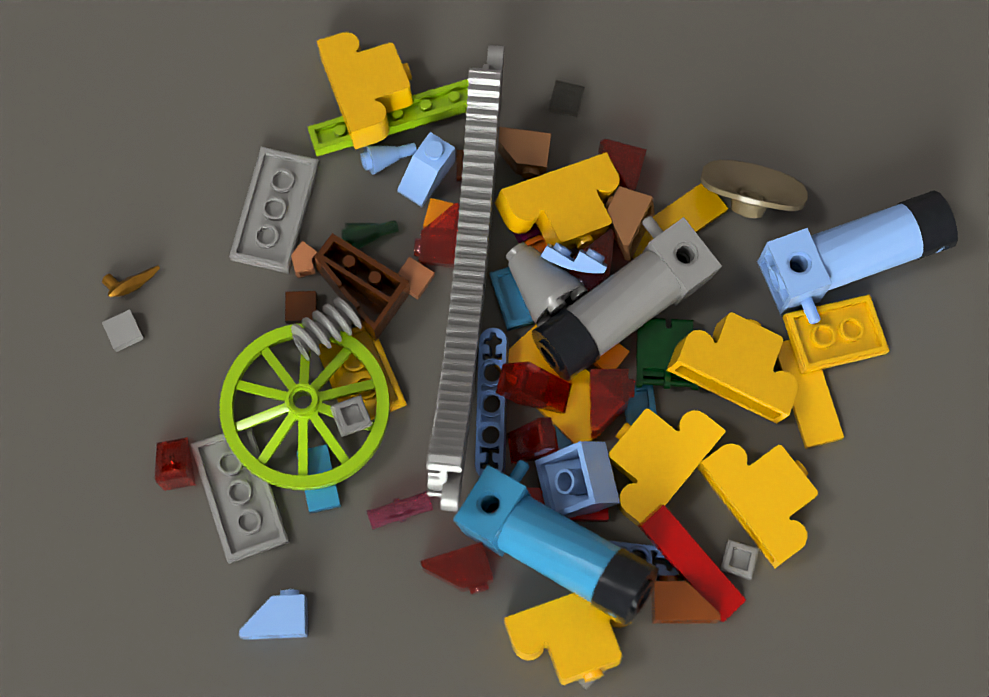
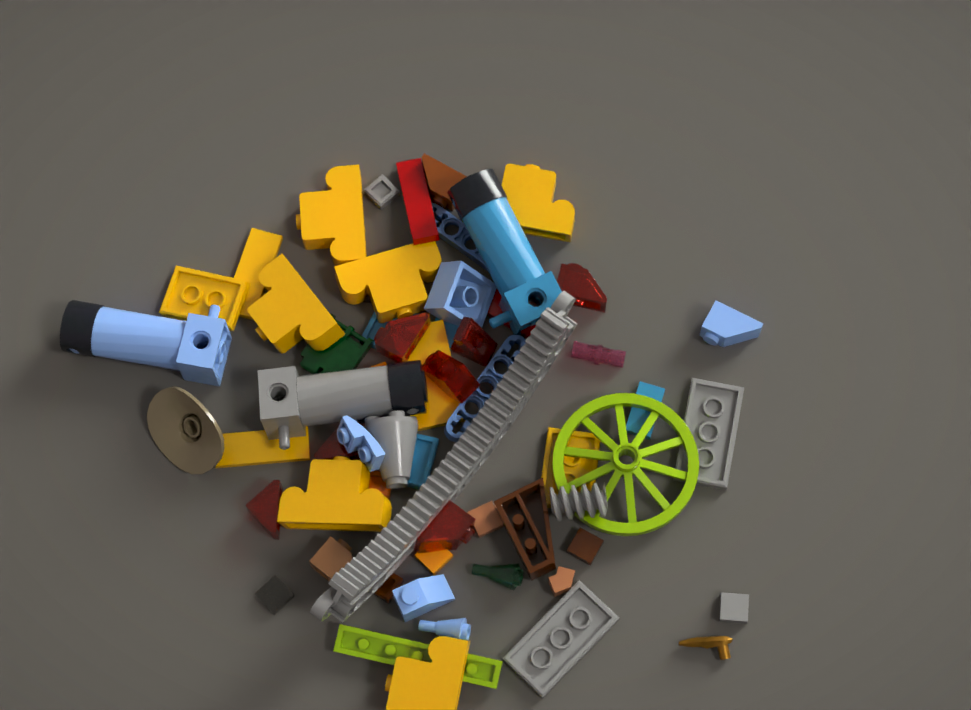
camera: 145 degrees left, 5 degrees down
(174, 464) = (747, 477): clear red slope -> none
(351, 415) = (596, 429): light grey tile -> none
(627, 212) = (294, 463): medium nougat slope -> none

